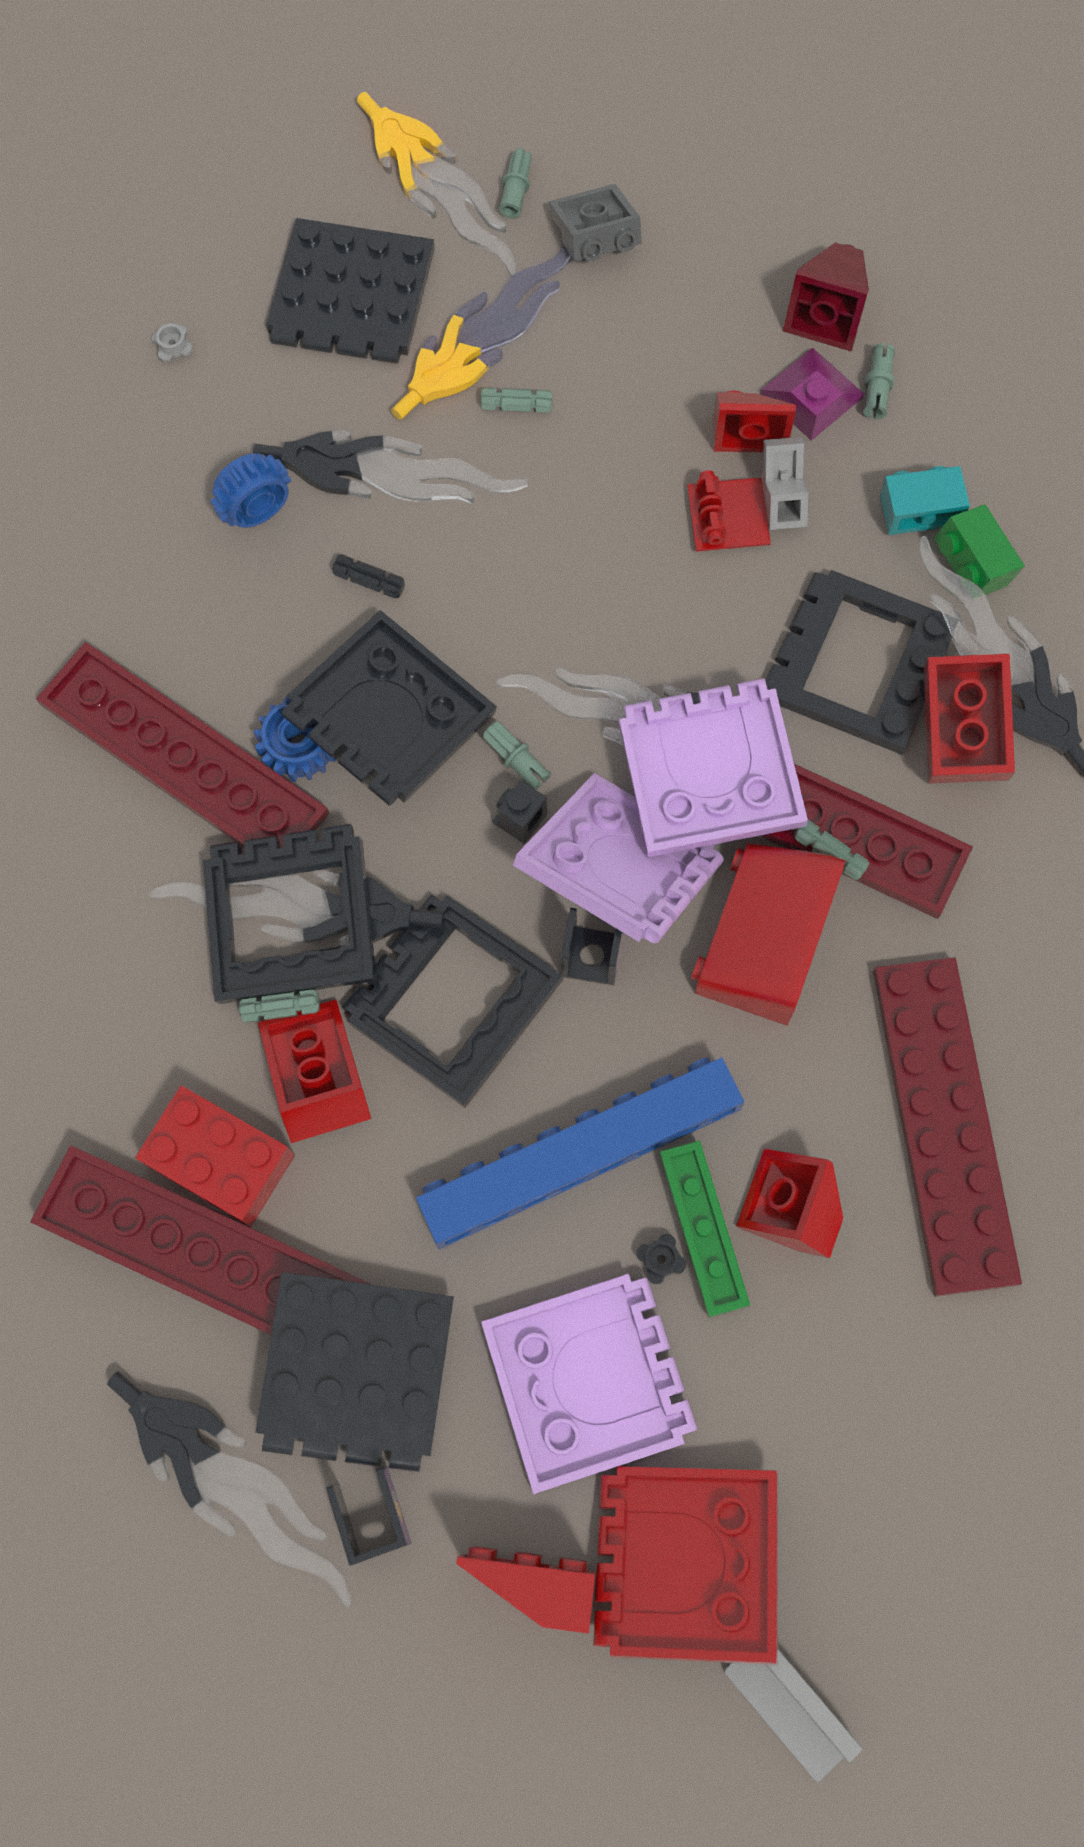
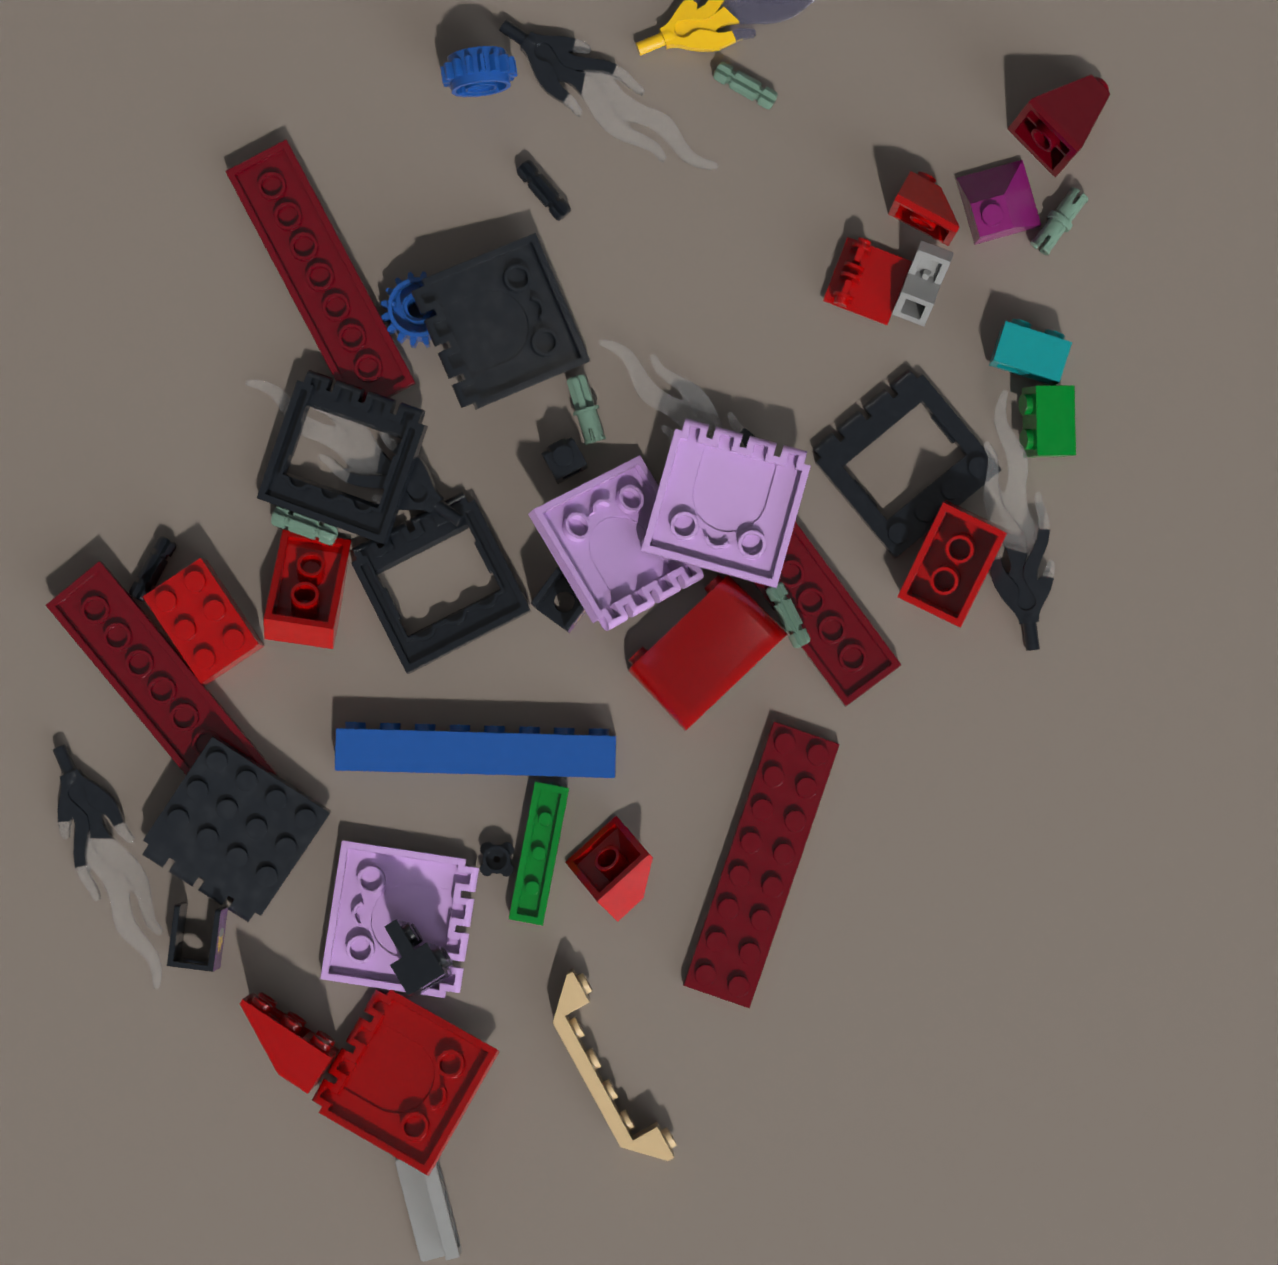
camera: 25 degrees right, 15 degrees up
(134, 1129) = (152, 568): none -> black axle
(641, 1413) = (420, 965): none -> black brick
(1000, 1488) = (649, 1141): none -> tan slope

